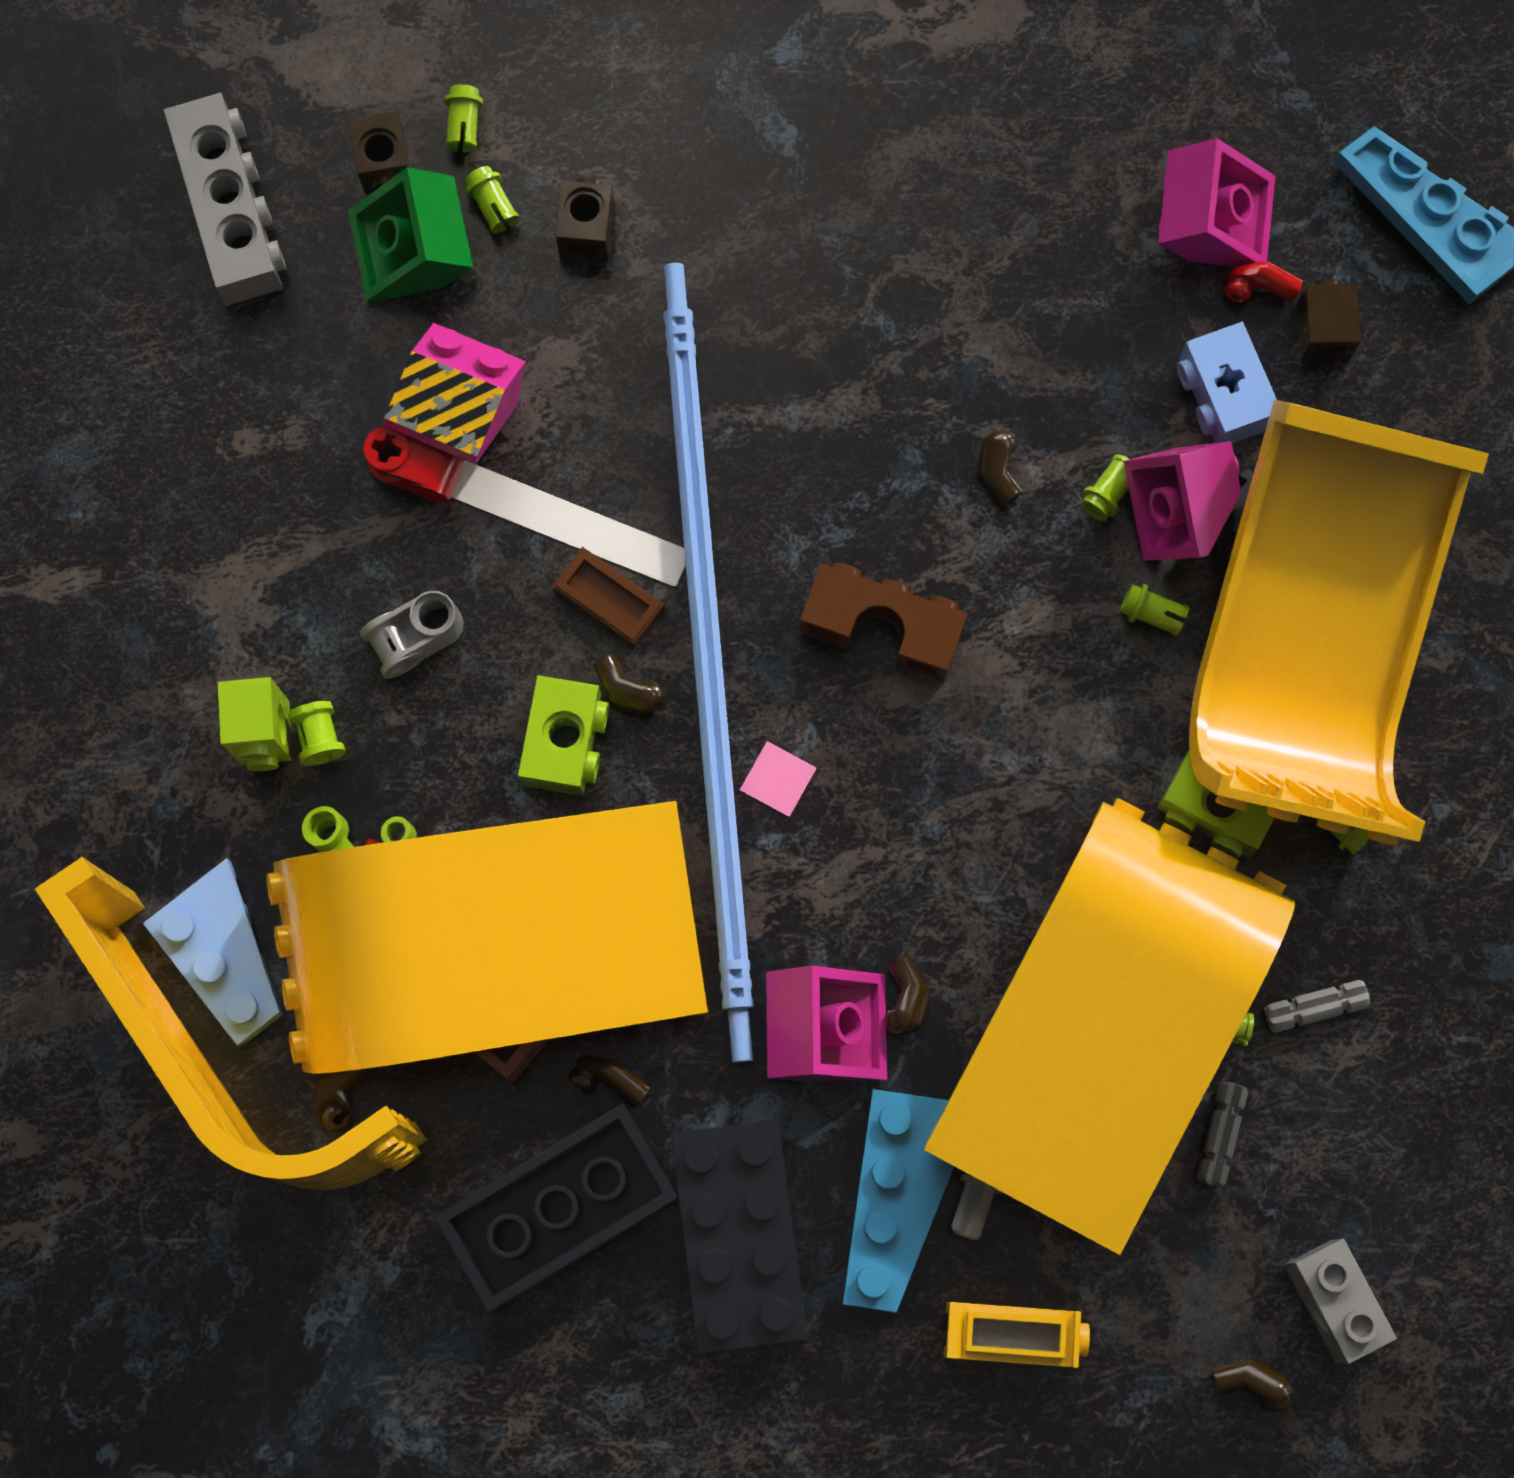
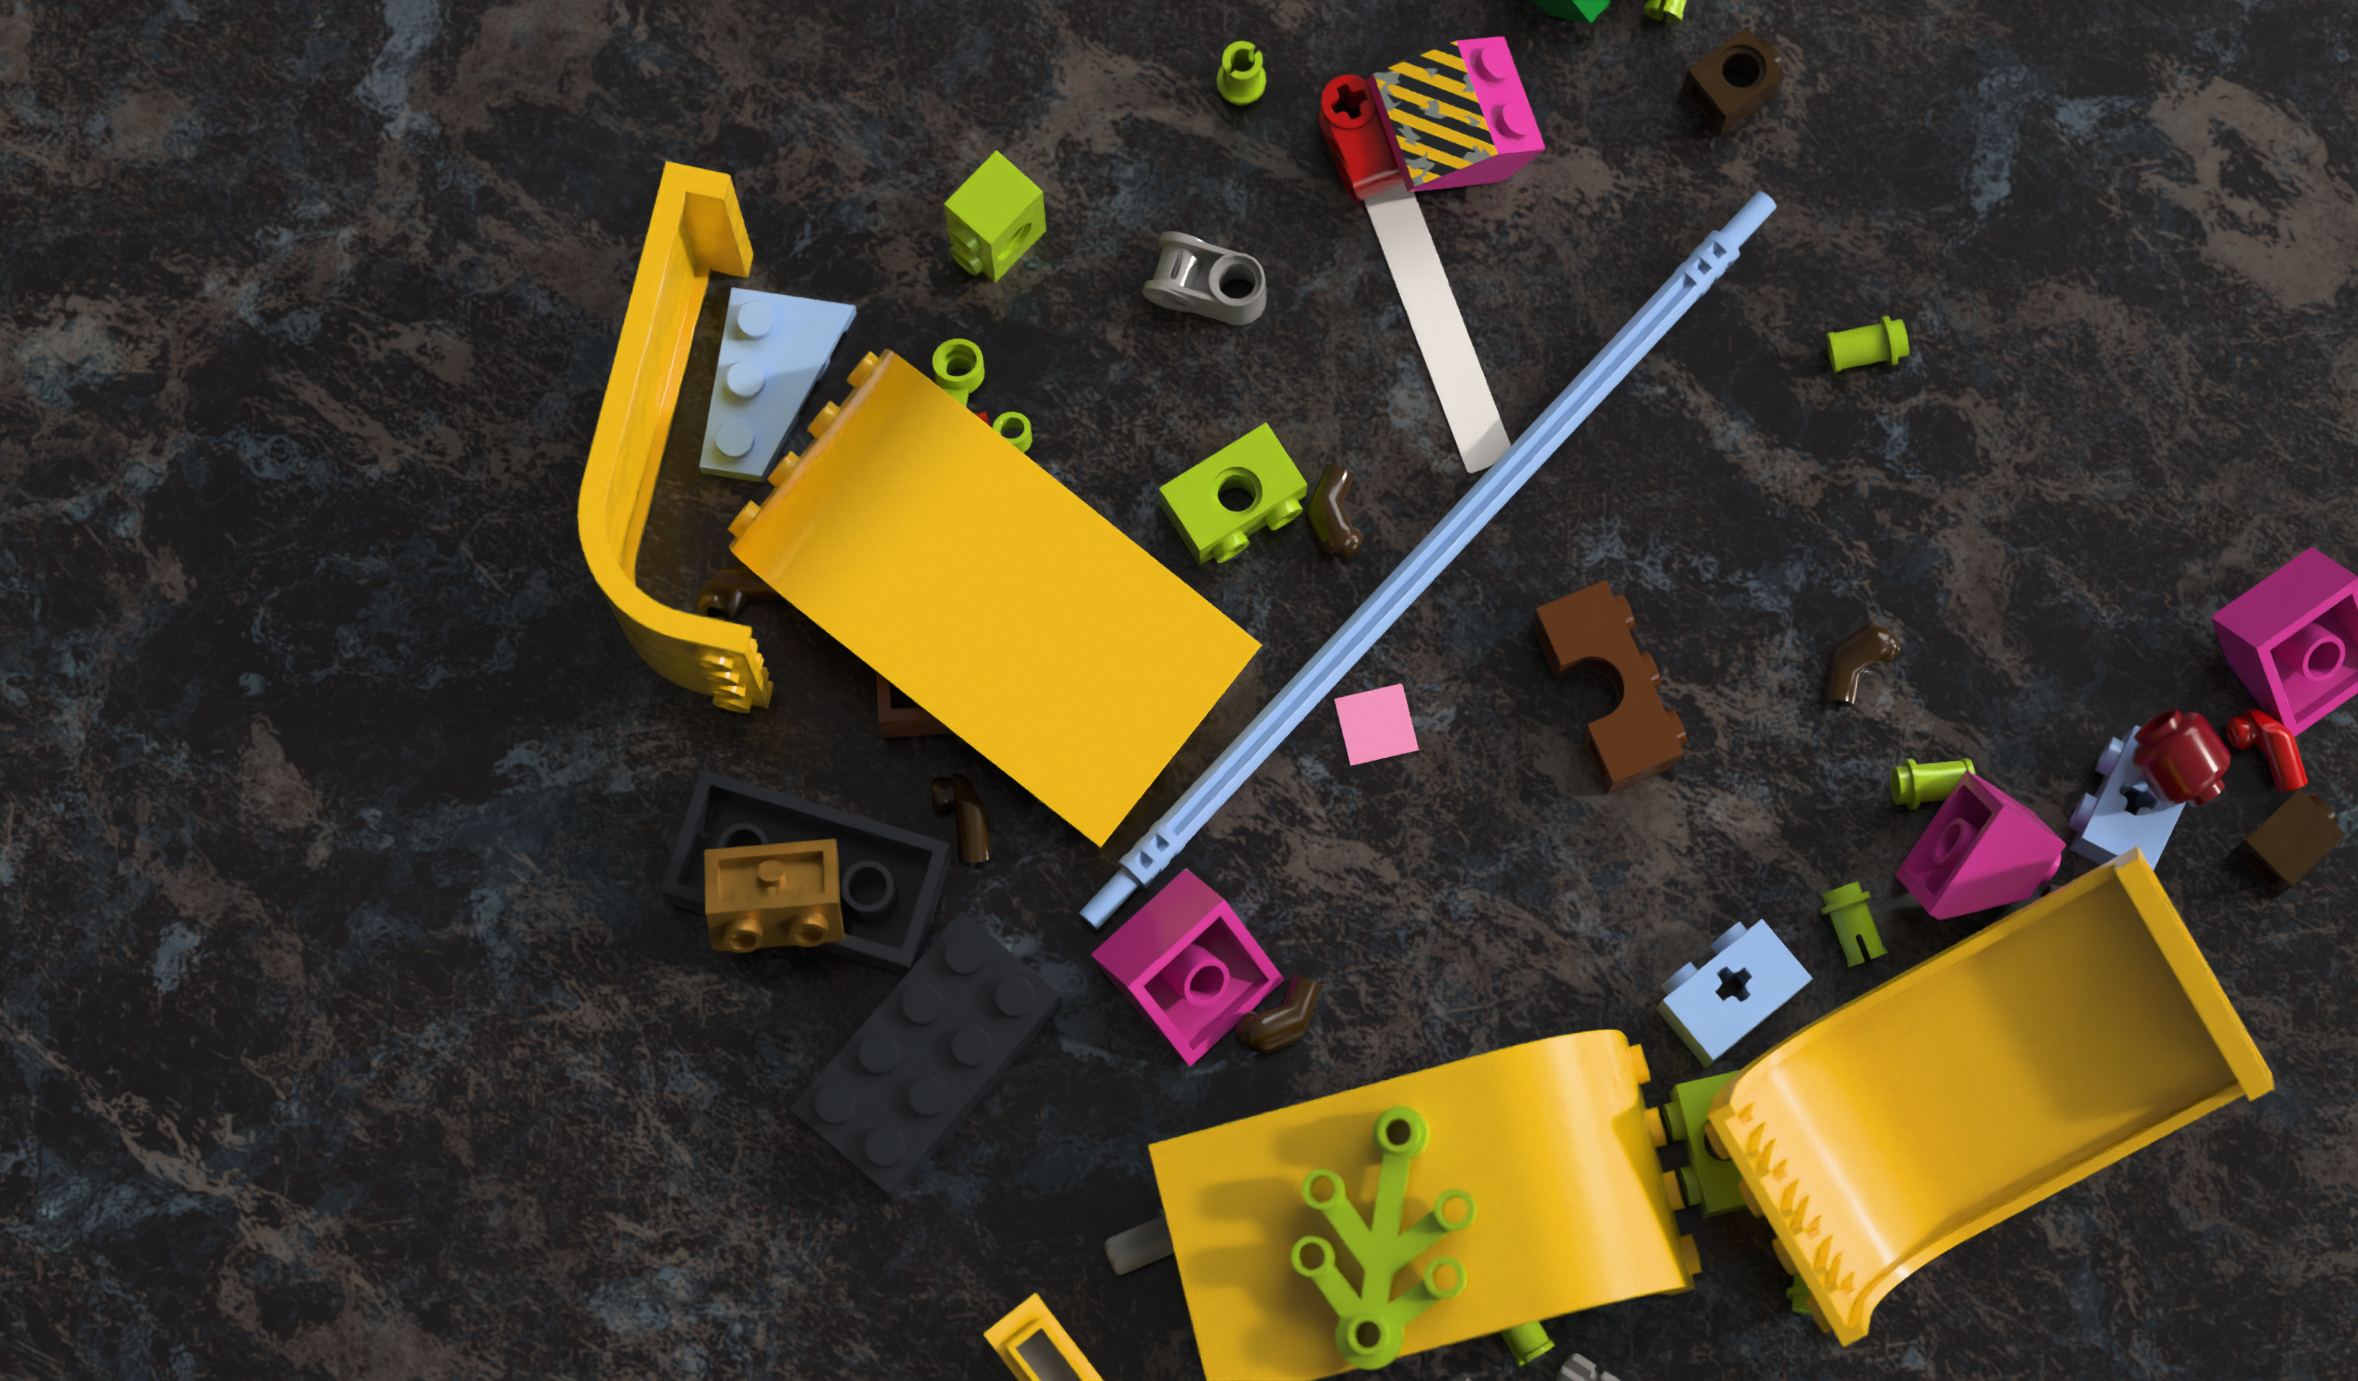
camera: 45 degrees right, 0 degrees up
(312, 494) = (1241, 74): none -> lime pin
(316, 733) = (1036, 280): lime bush -> none
(557, 1243) = (773, 895): none -> pearl gold bracket
(608, 597) = (1401, 422): reddish brown tile -> none
(815, 288) = (1868, 344): none -> lime pin
(894, 1199) = (1085, 1170): dark azure wing -> none
(1122, 1064) = (1382, 1249): none -> lime plant
(1146, 689) = (1769, 980): none -> light blue brick
(1233, 332) = (2181, 758): none -> dark red head

